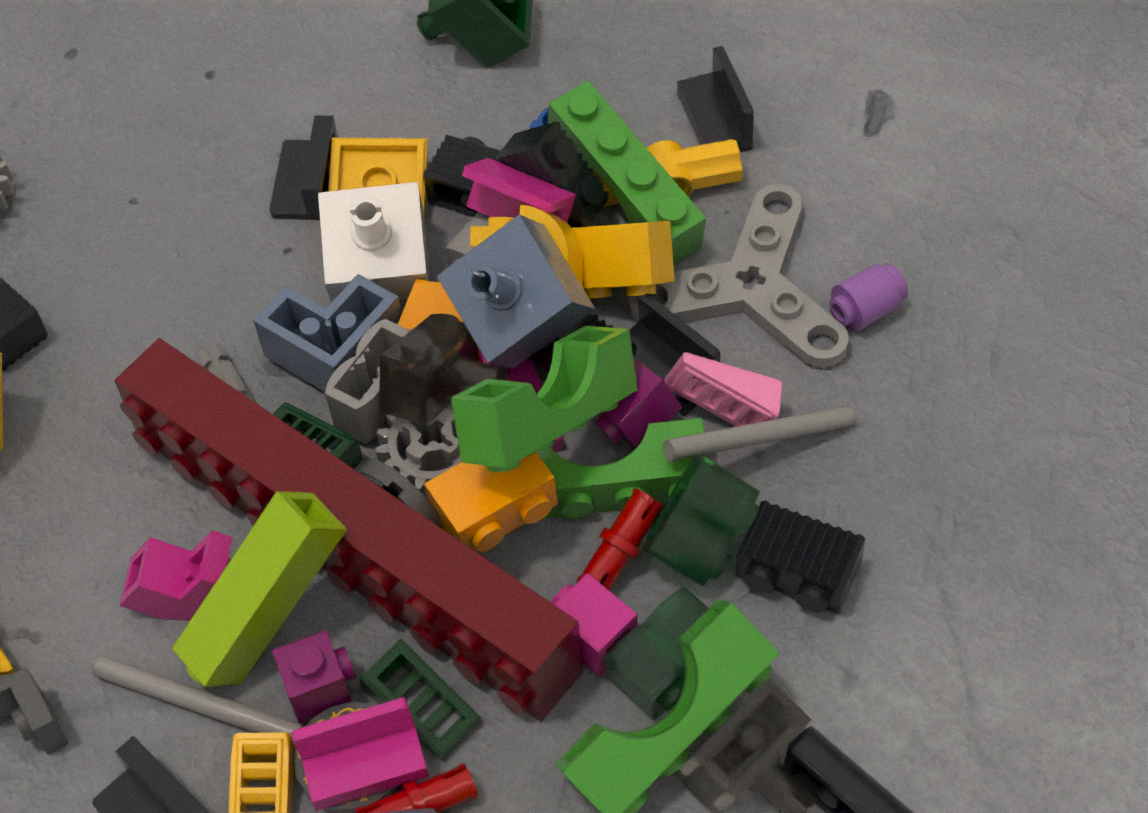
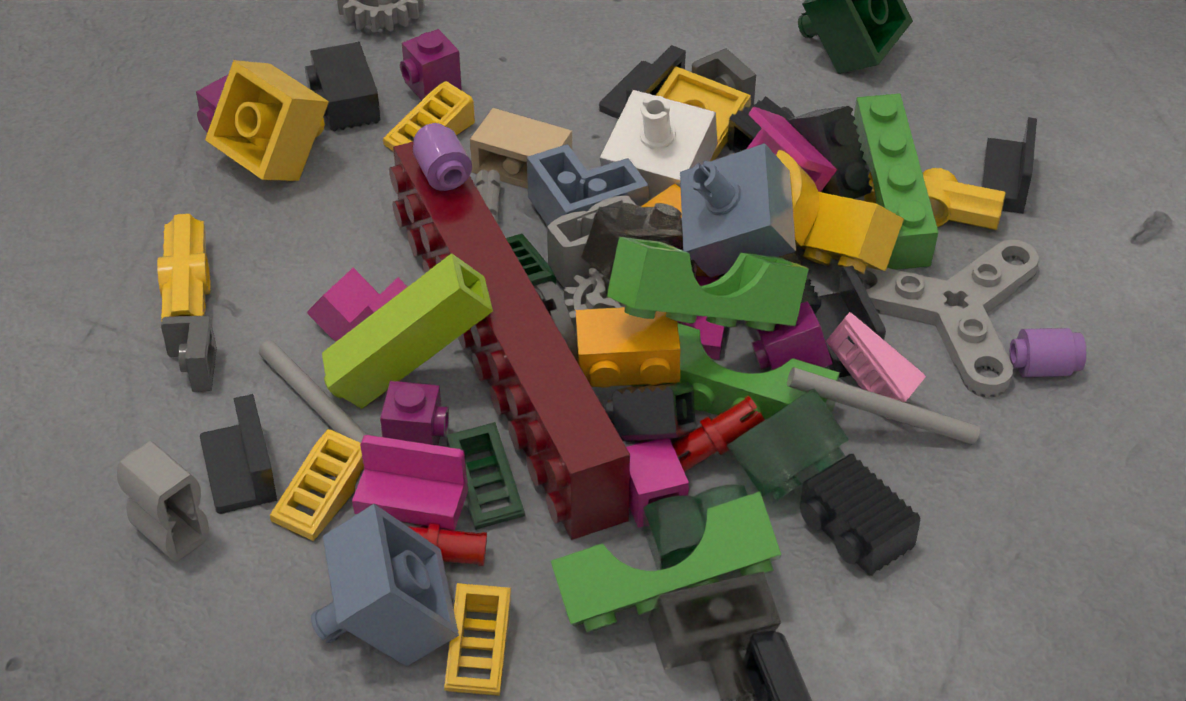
camera: 25 degrees right, 10 degrees down
(71, 249) = (429, 62): none -> magenta brick
(112, 286) = (443, 102): none -> yellow slope
(182, 373) = (441, 157): none -> medium lavender brick
(222, 304) = (508, 139): none -> tan brick
(385, 120) = (727, 70): none -> dark grey bracket
(553, 553) = (652, 411): none -> black brick

